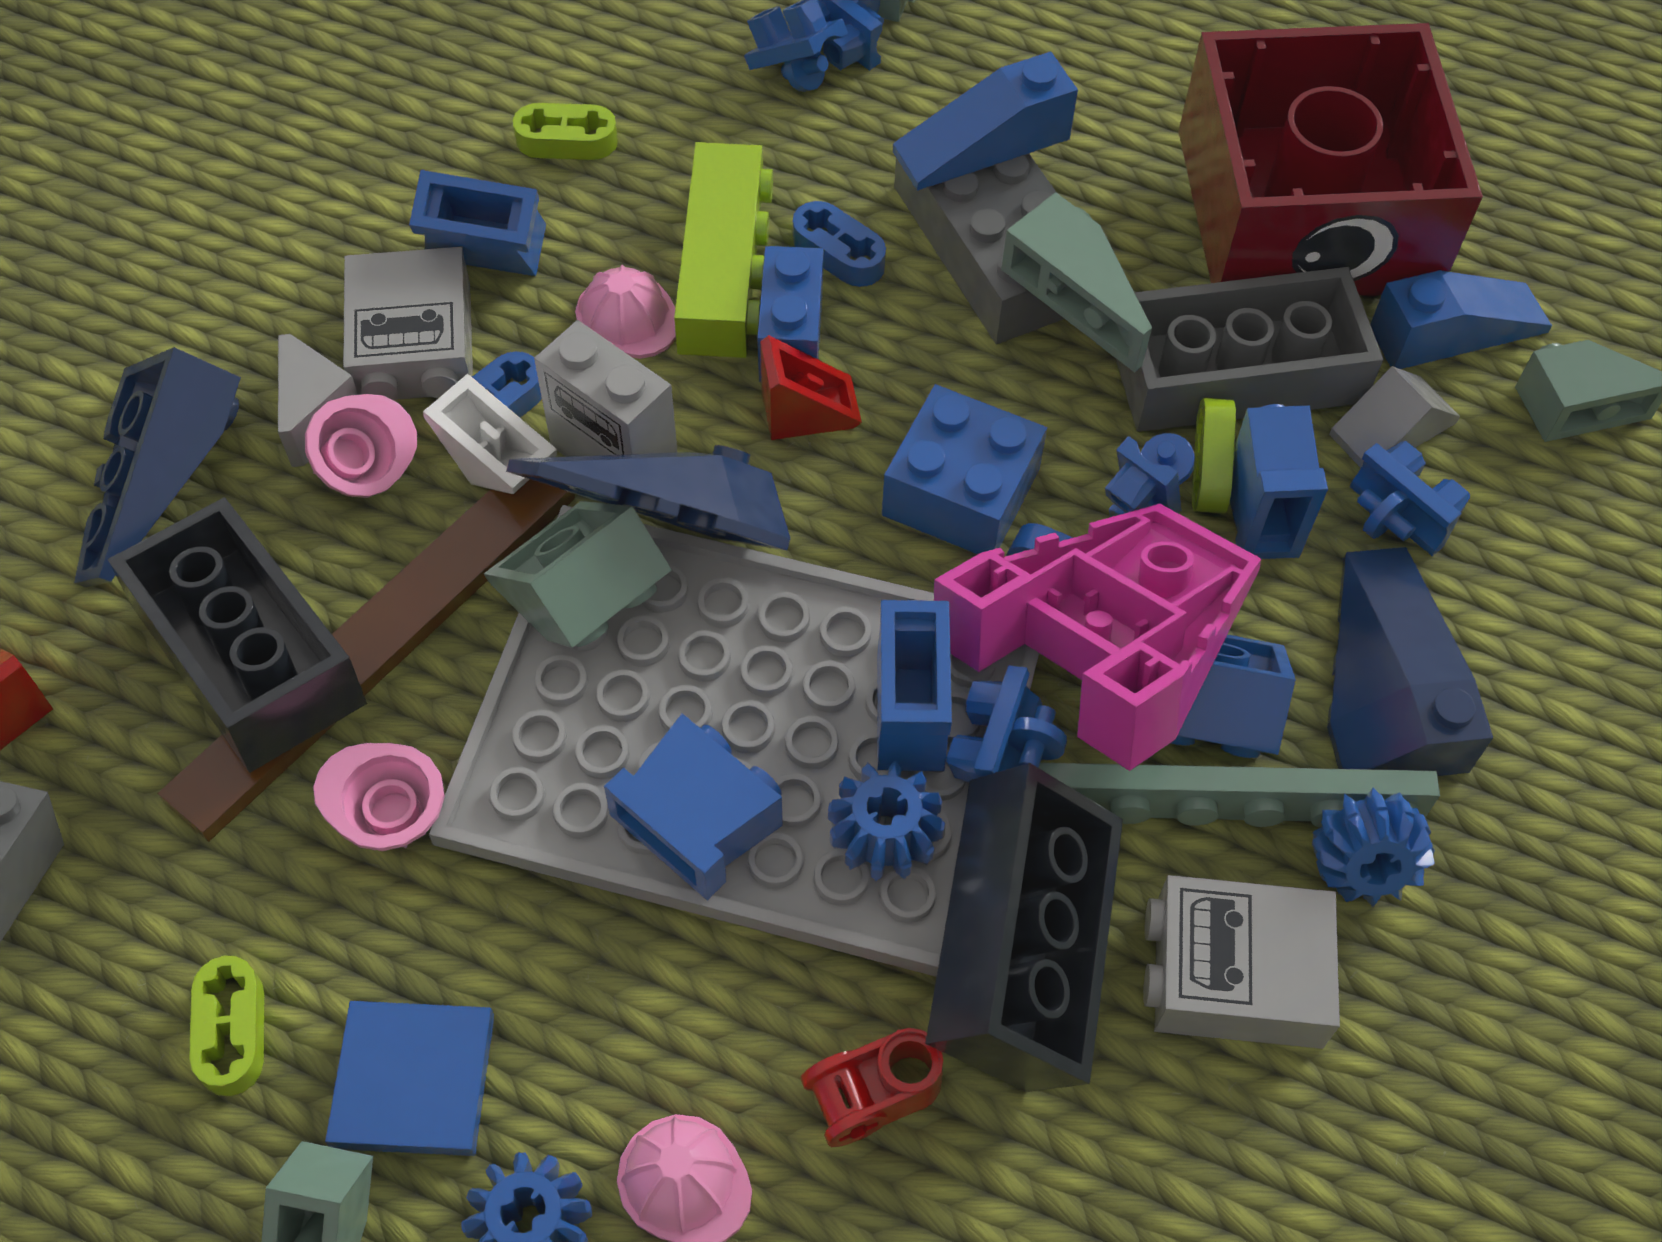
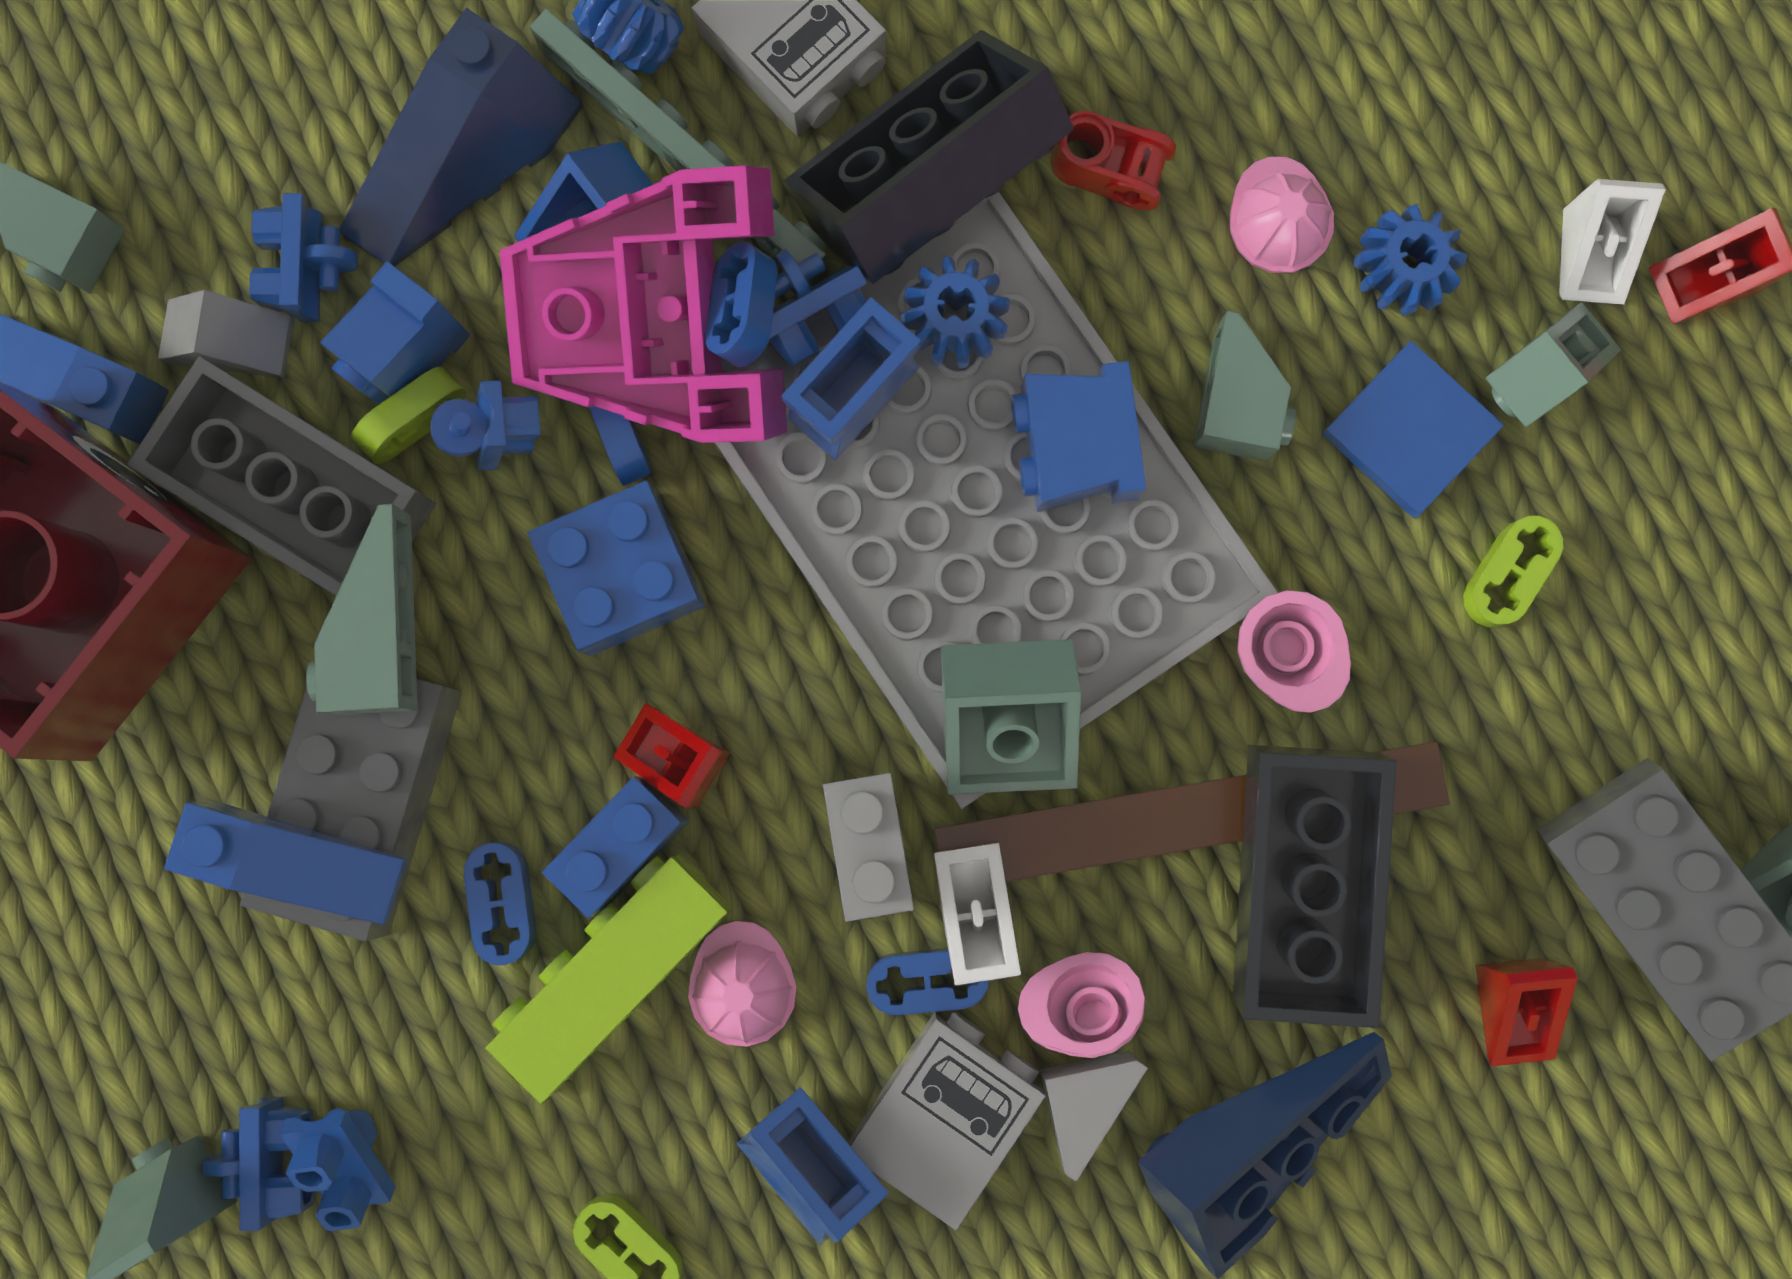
camera: 135 degrees left, 25 degrees up
(587, 971) = (1243, 396): none -> sand green slope
(689, 490) = (888, 712): dark blue wedge -> none
(1045, 665) = (741, 304): none -> blue beam

